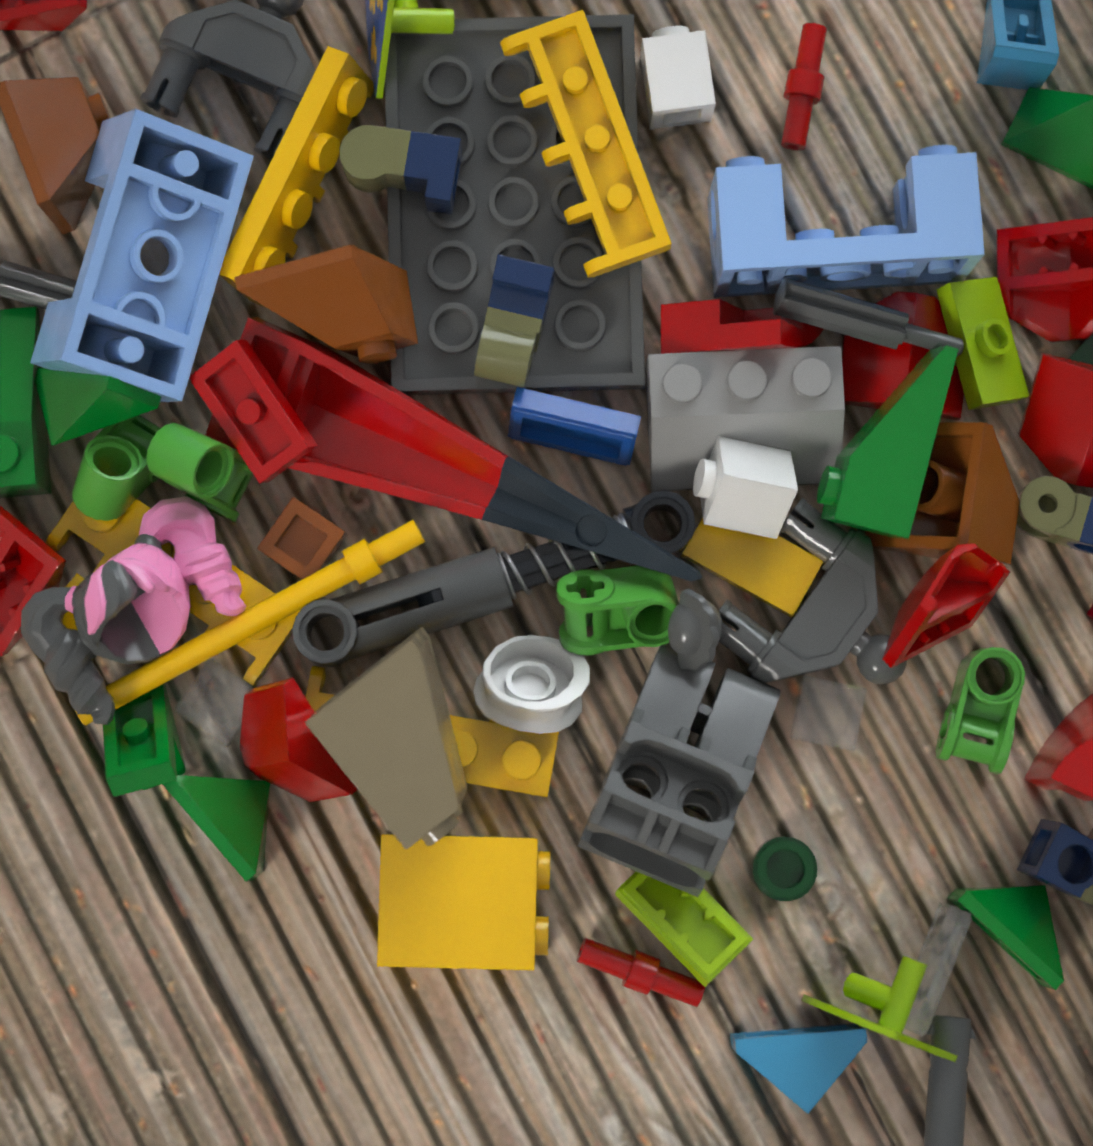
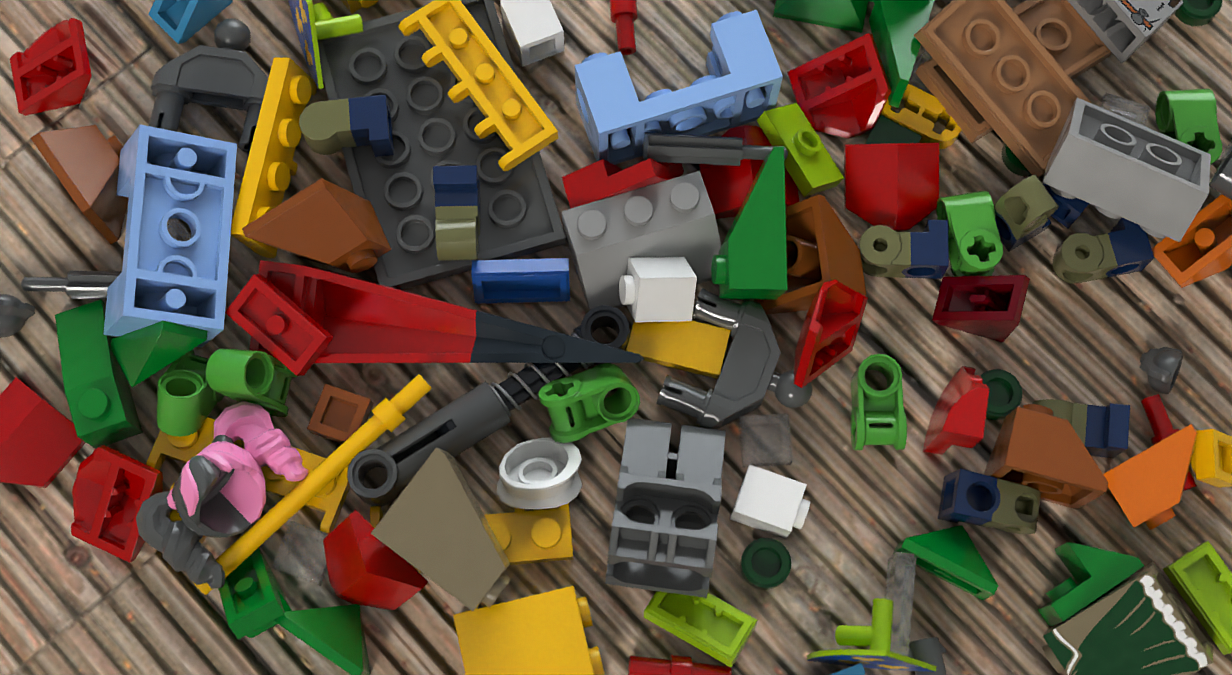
camera: 15 degrees left, 10 degrees down
(694, 630) = (649, 399): dark grey piece -> none
(811, 797) = (770, 502): none -> white brick

